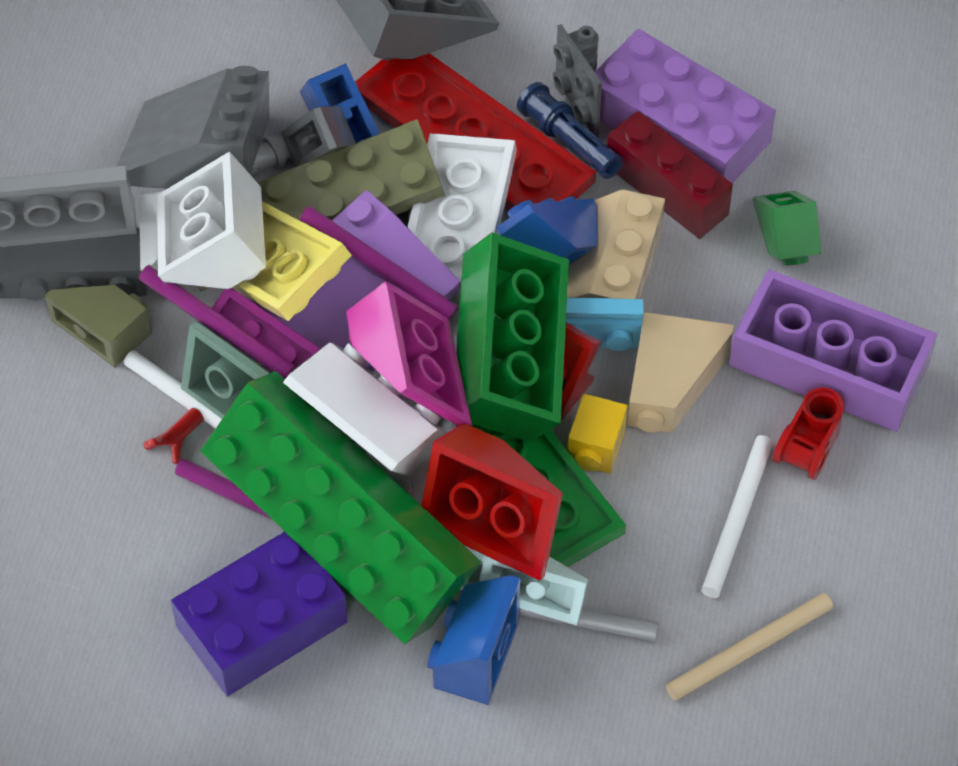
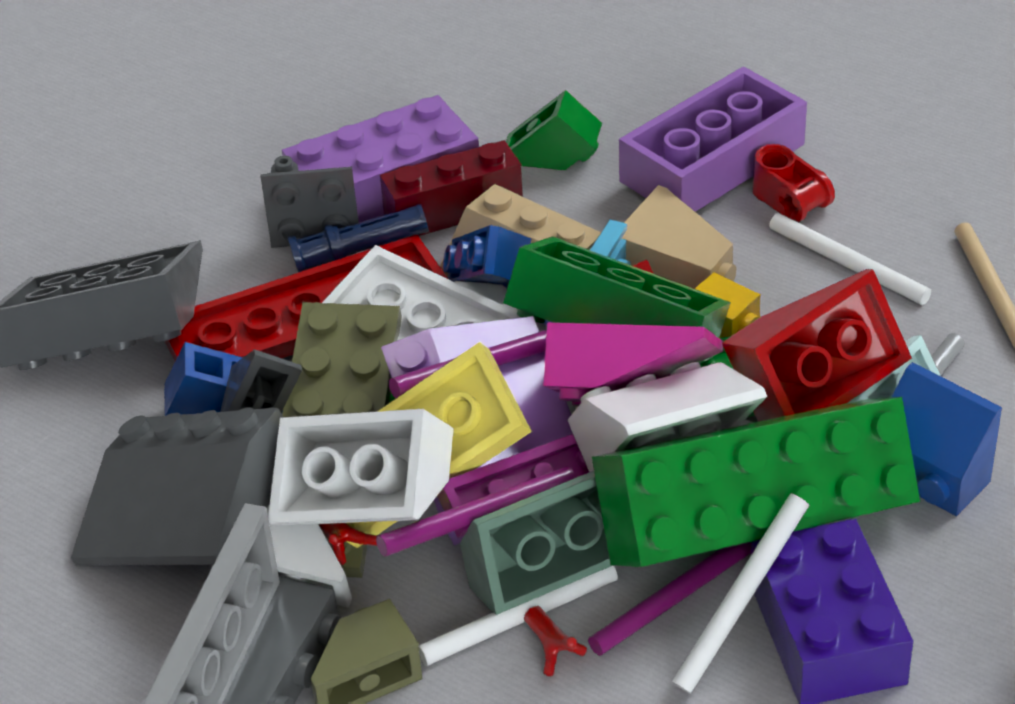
camera: 65 degrees left, 15 degrees down
(235, 537) = (740, 593): none -> white bar

